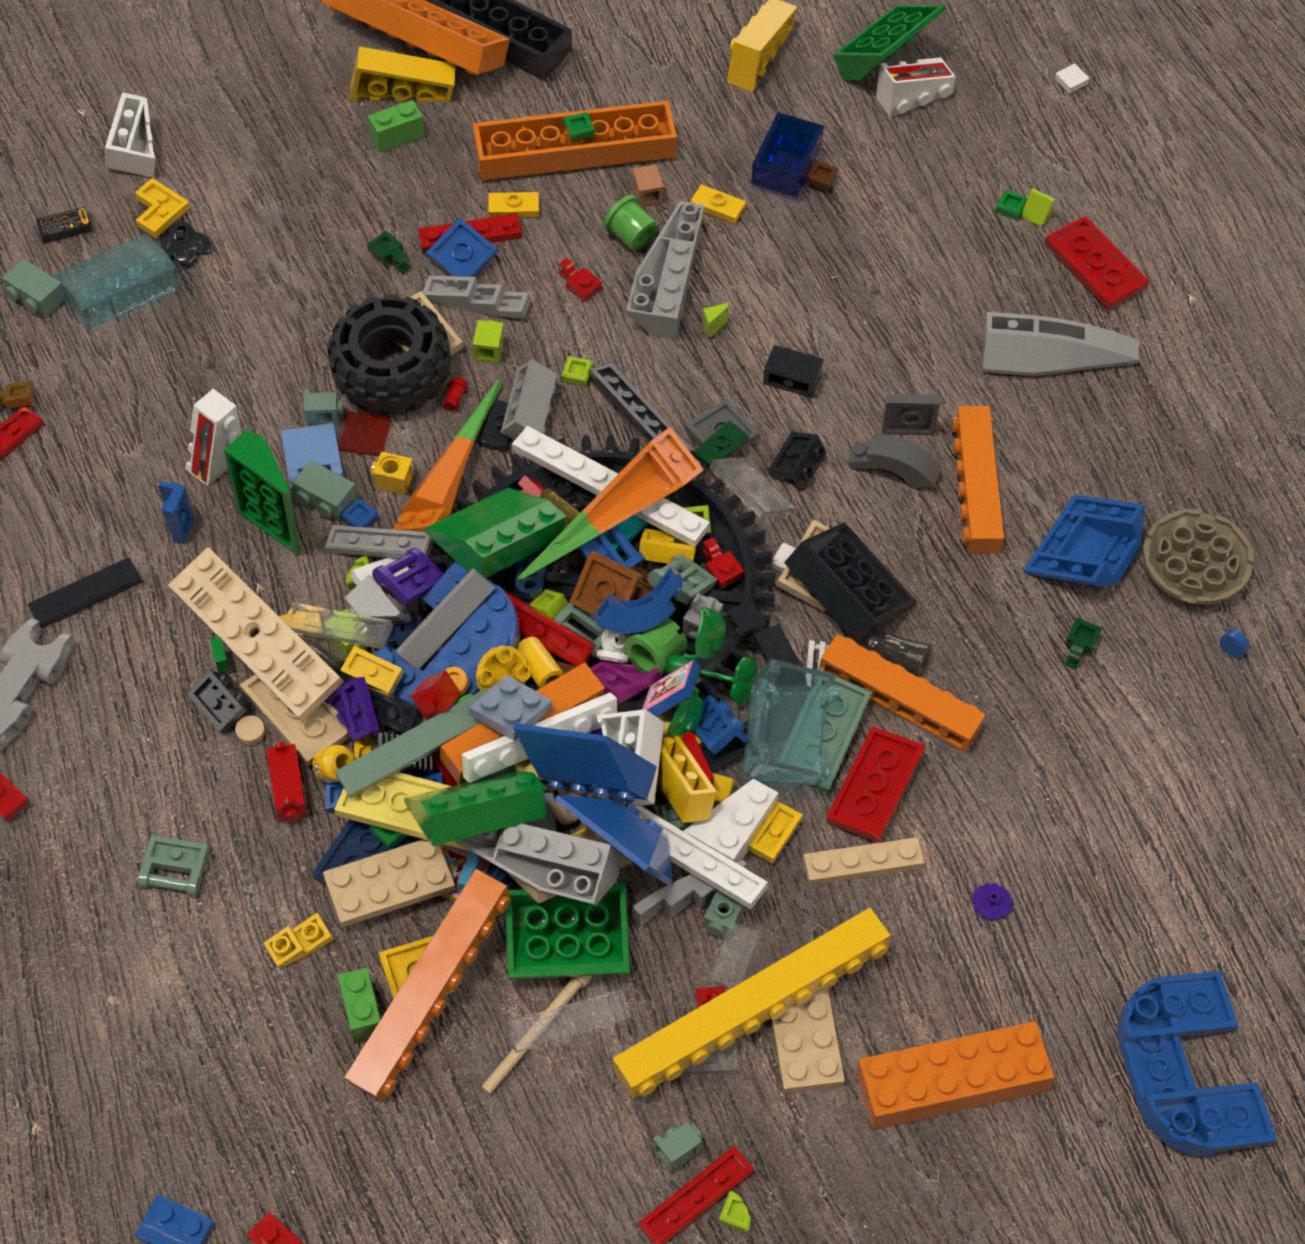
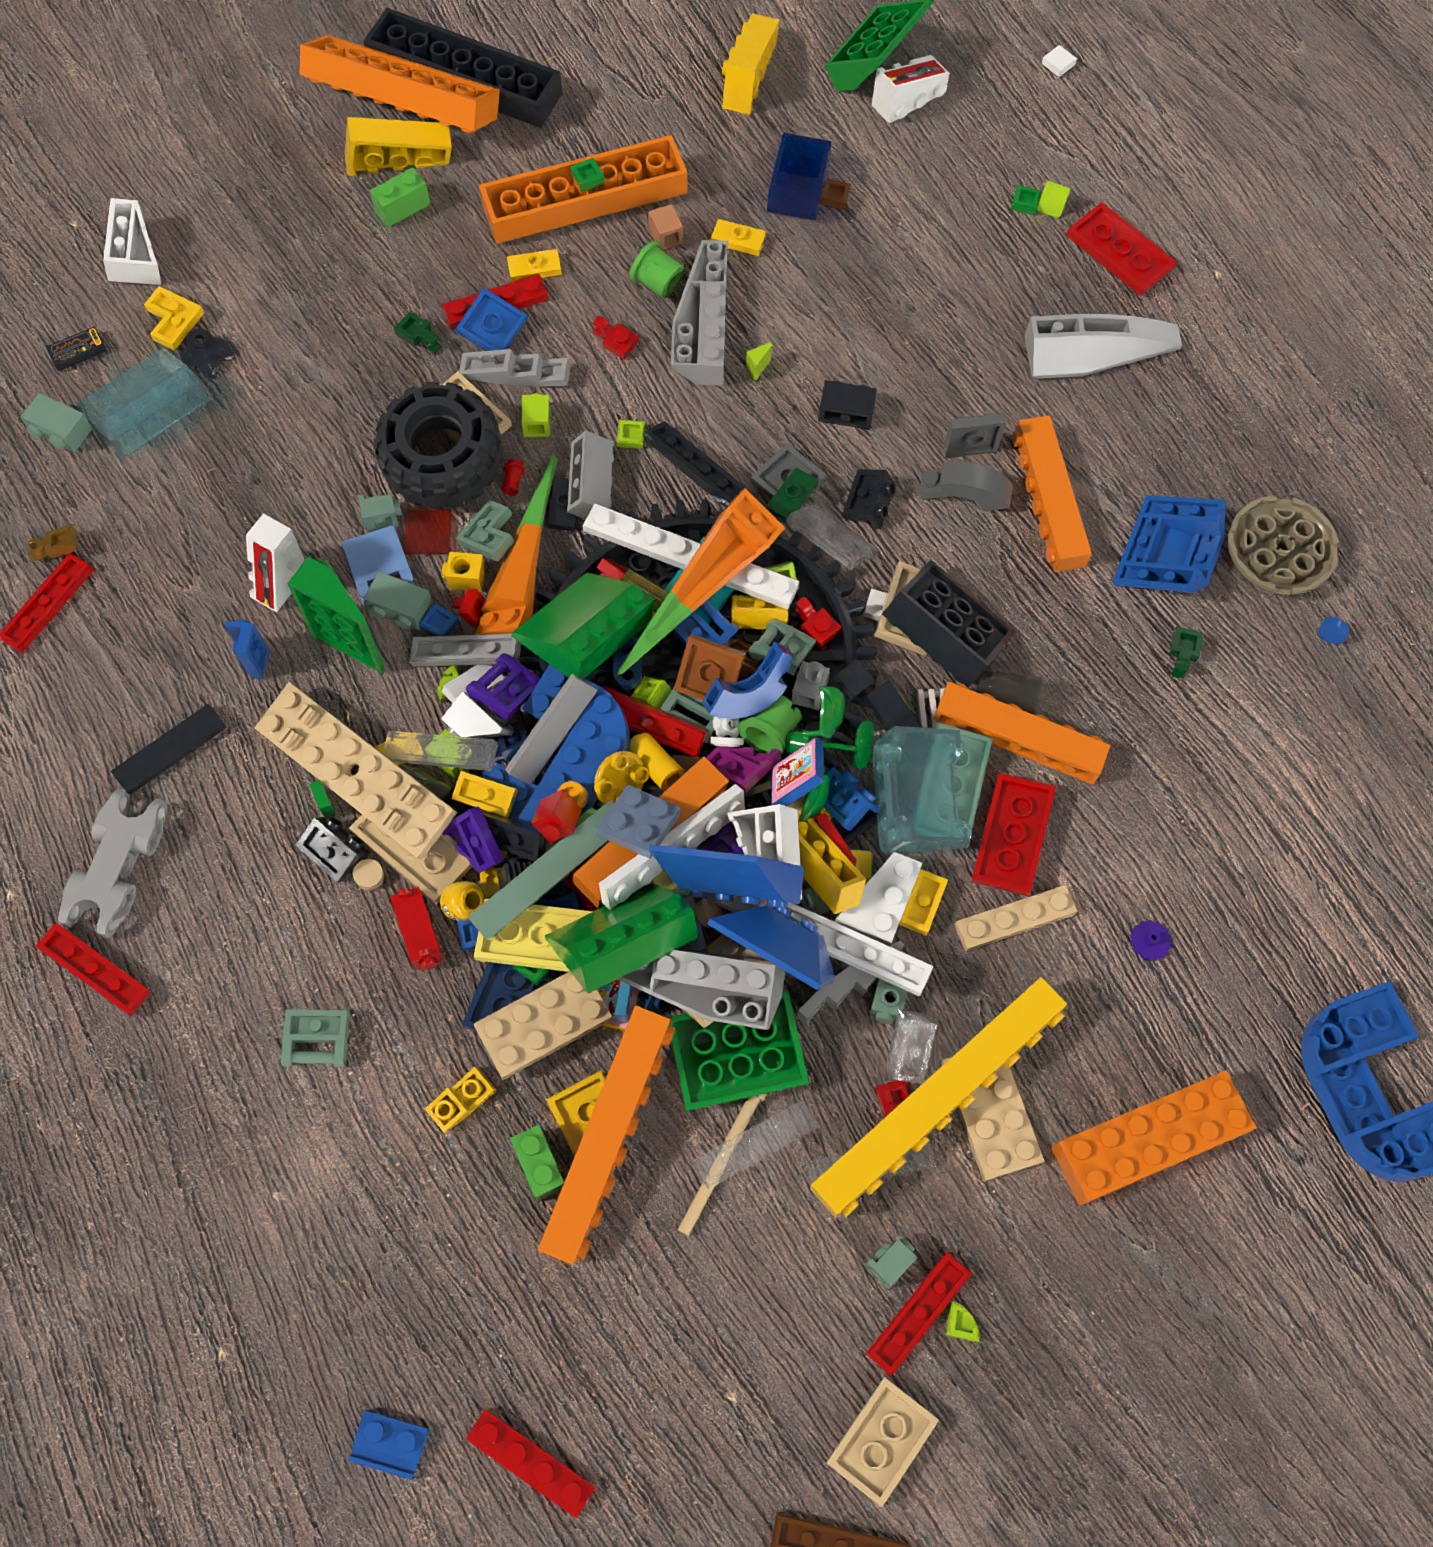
camera: 10 degrees left, 10 degrees up
(391, 504) = (470, 606): none -> red tile
(418, 440) = (484, 532): none -> sand green plate

